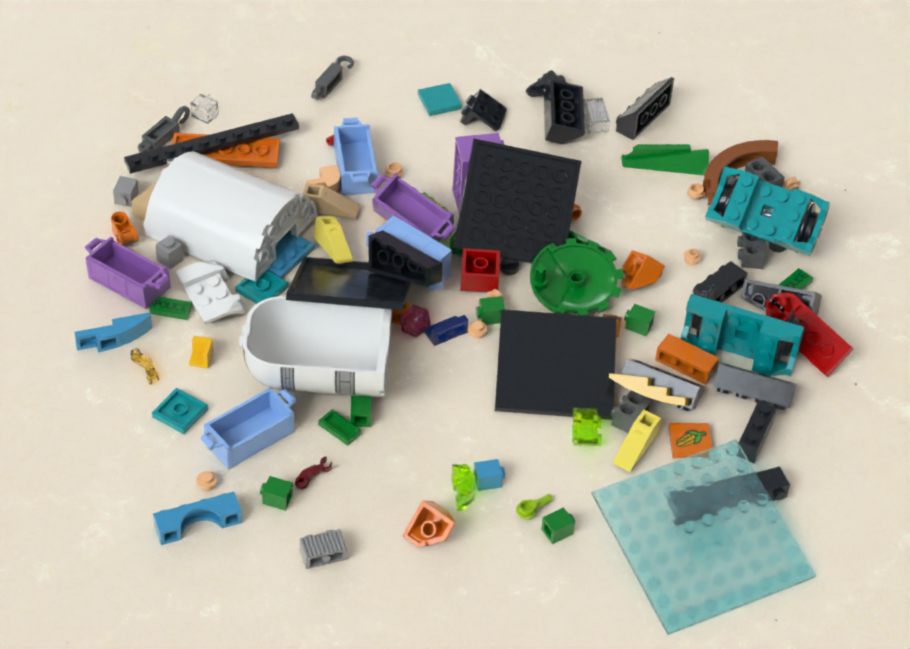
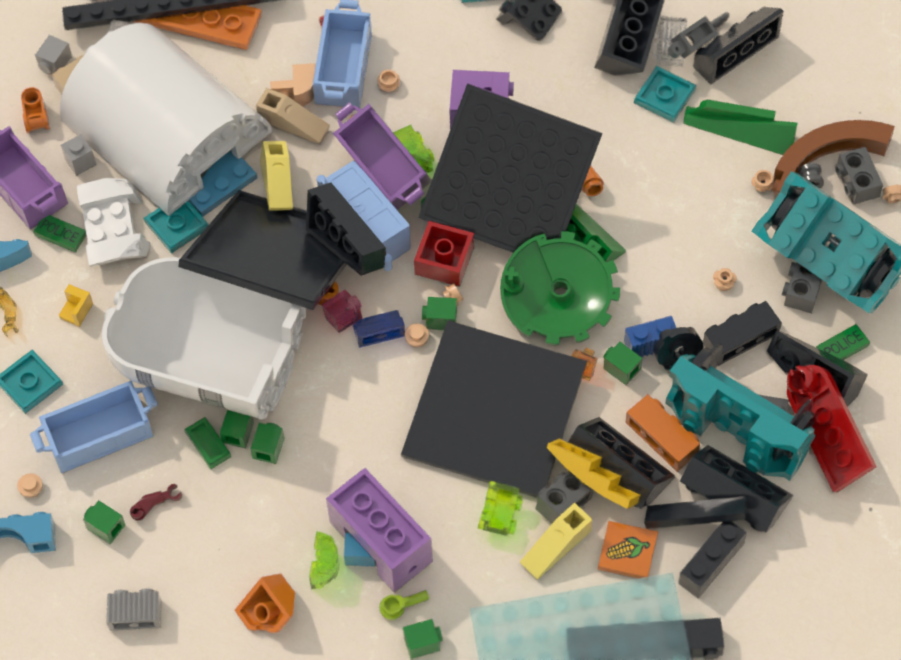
camera: 20 degrees right, 15 degrees up
(388, 417) = (267, 442): none -> green brick
(506, 447) = (381, 528): none -> medium lavender piece
(509, 266) = (486, 252): black tile -> none
(602, 149) = (665, 94): none -> teal tile
(614, 106) = (699, 33): none -> dark grey piece
(640, 270) = (648, 291): orange slope -> none
(657, 297) = (644, 336): none -> blue brick
(671, 297) = (671, 340): none -> black plate
(734, 402) = (696, 512): none -> black tile

